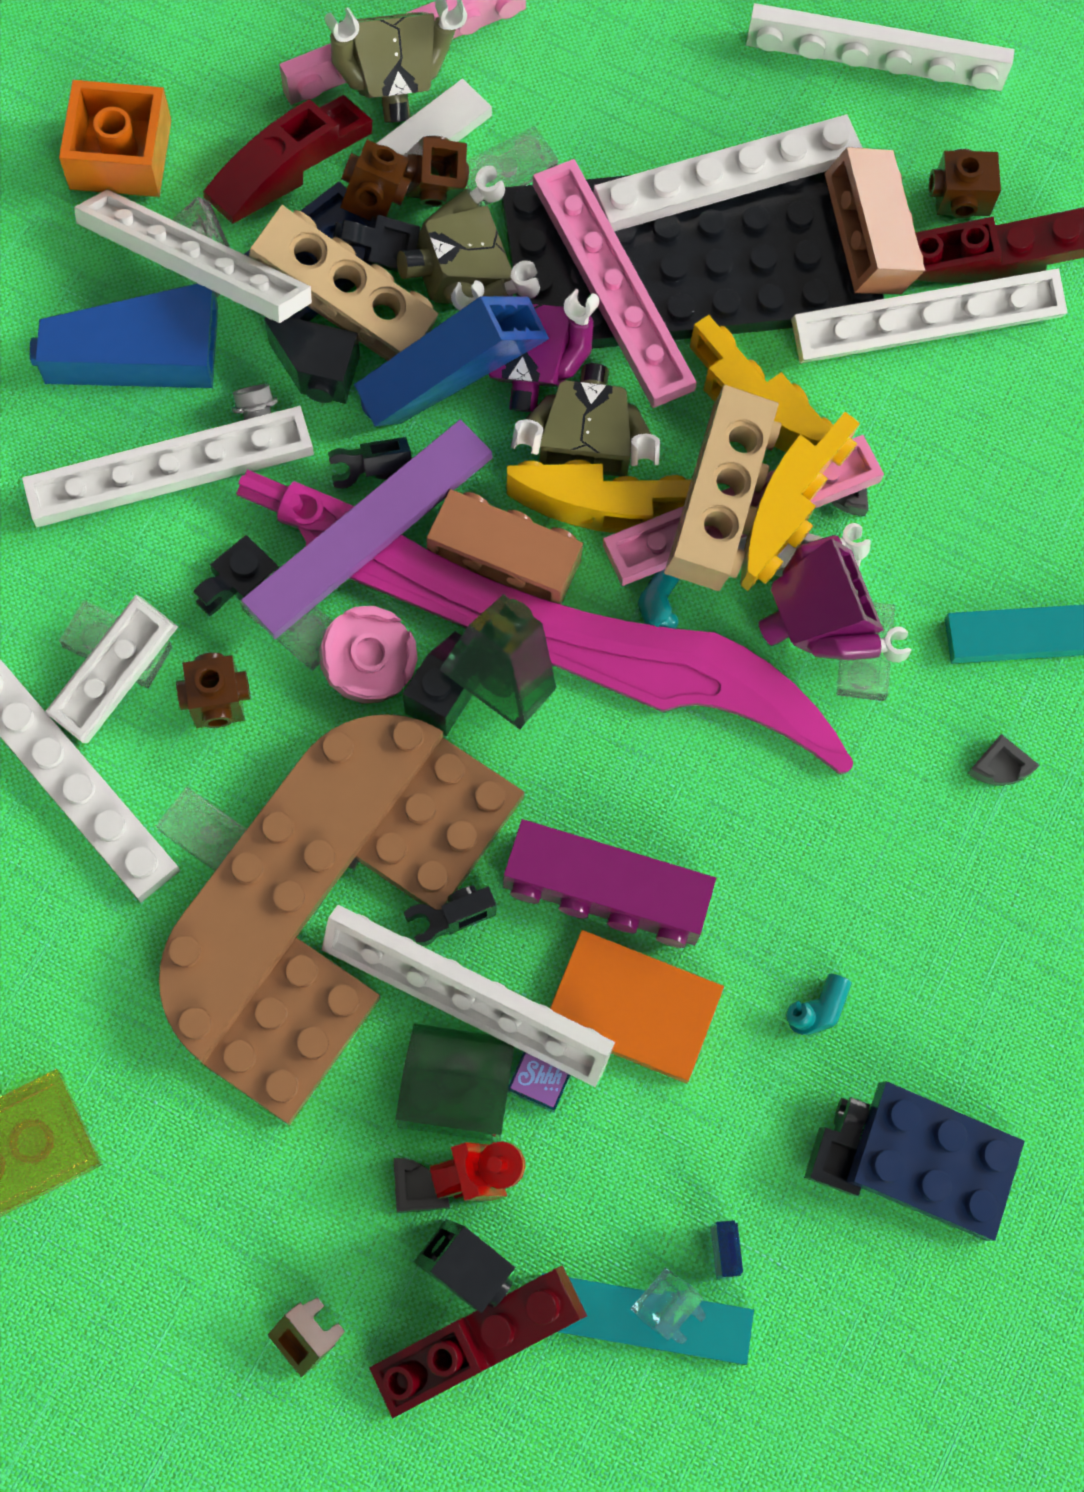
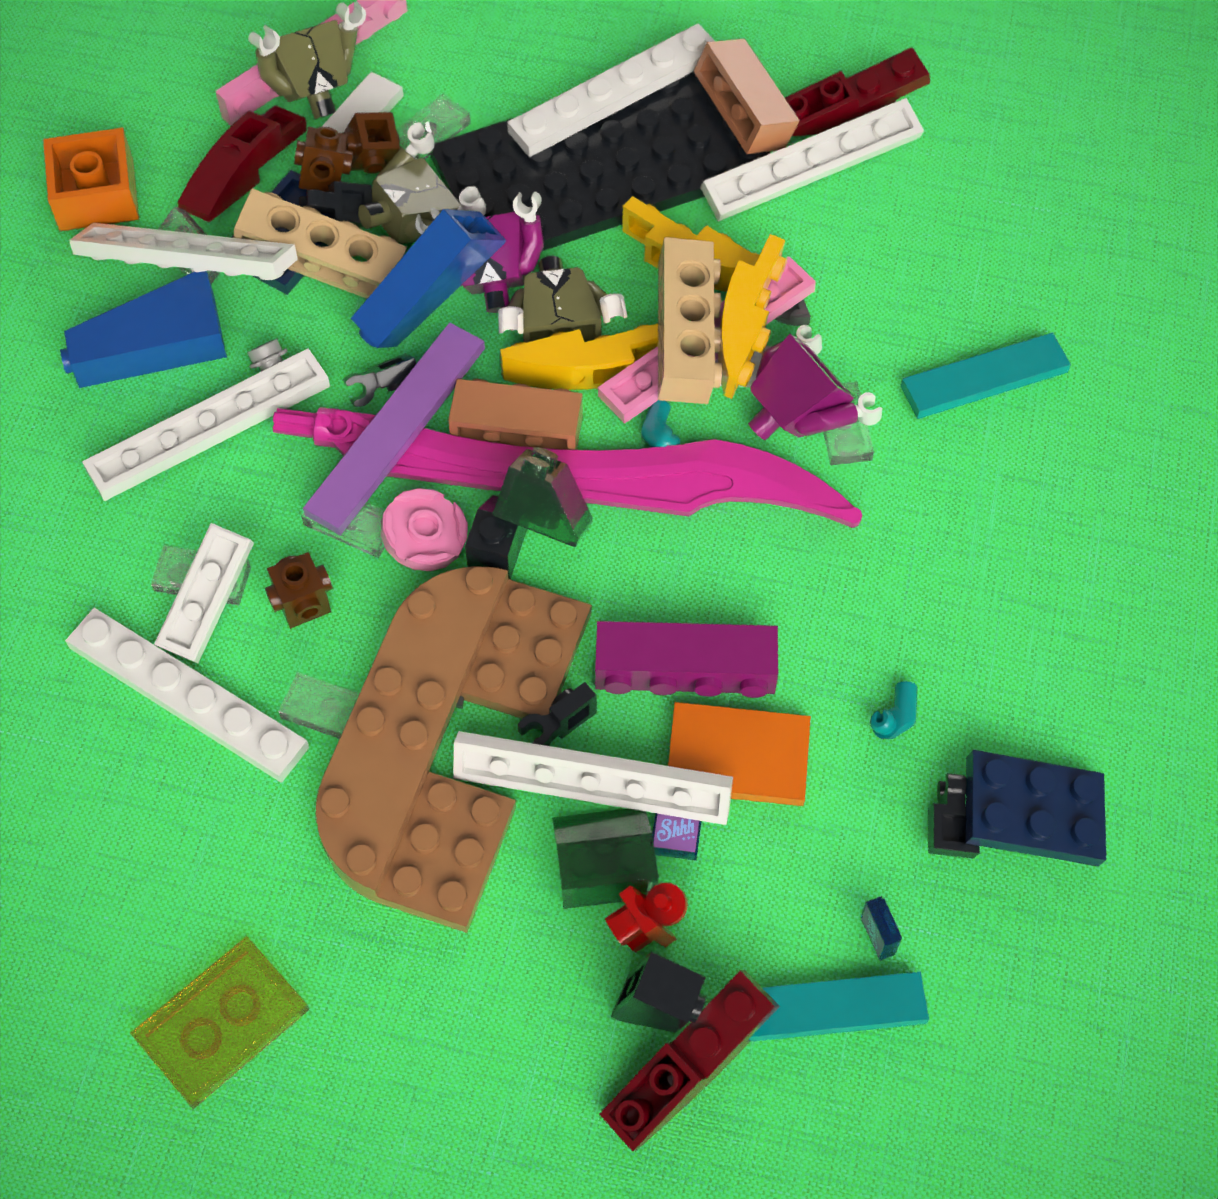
camera: 10 degrees left, 10 degrees down
(236, 574) = (288, 496): black plate -> none
(302, 1338) = (533, 1102): tile -> none
(316, 357) = (308, 307): black slope -> none
(415, 1188) = (596, 952): dark grey tile -> none
(615, 281) = (560, 201): bright pink plate -> none
(668, 1305) = (846, 982): clear light blue tile -> none
(966, 183) = (810, 53): reddish brown brick -> none
(1003, 764) = (986, 484): dark grey tile -> none

